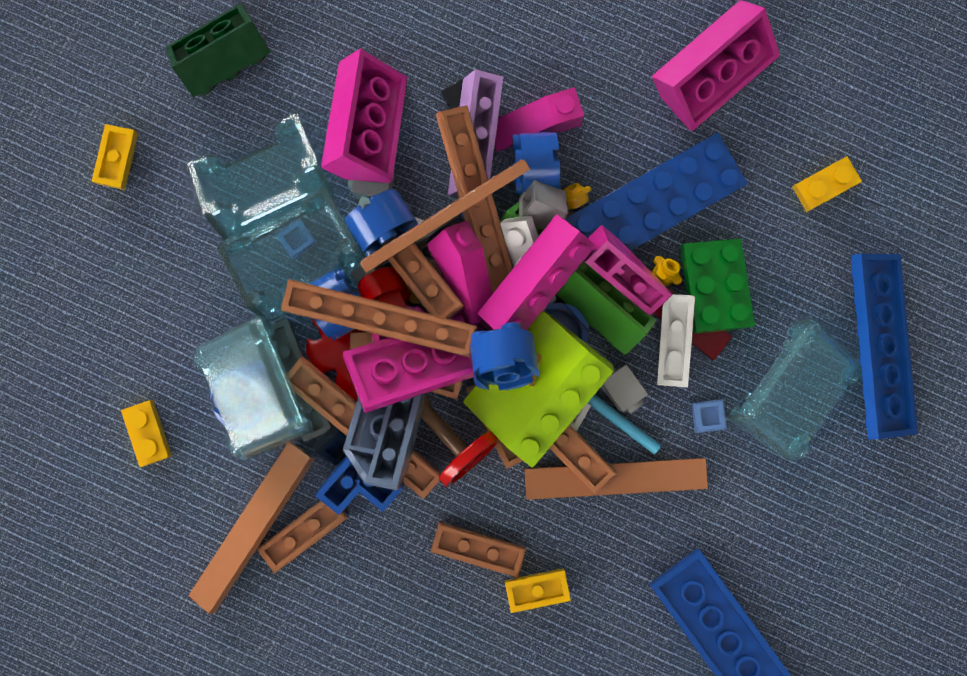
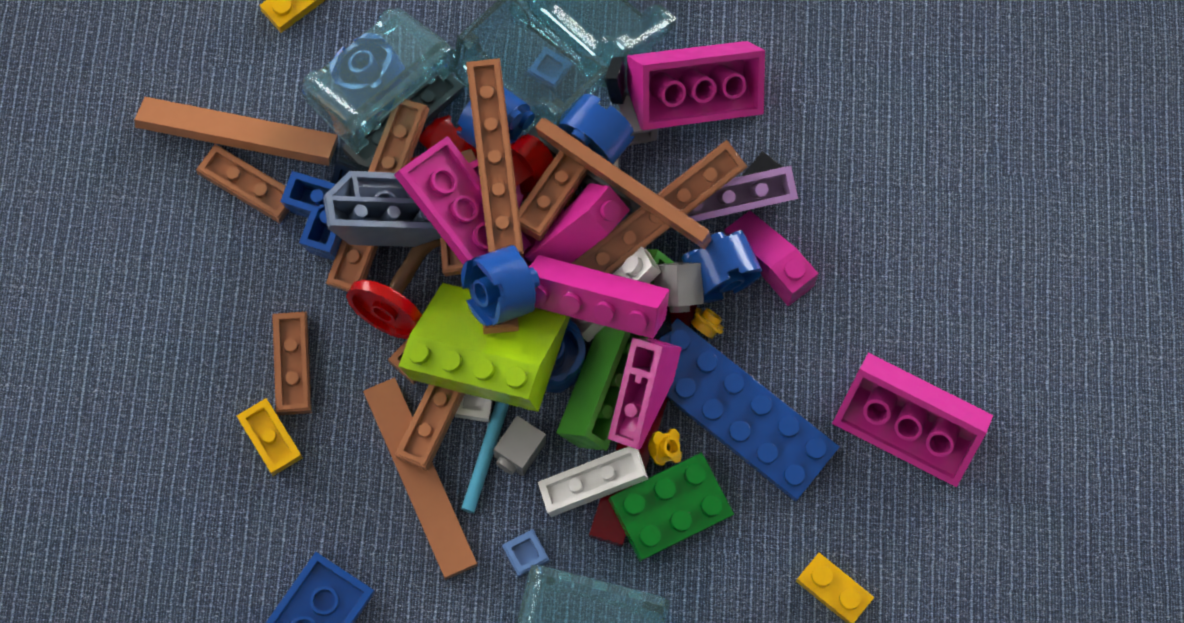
camera: 65 degrees right, 15 degrees down
(338, 185) = (617, 80): none -> black tile

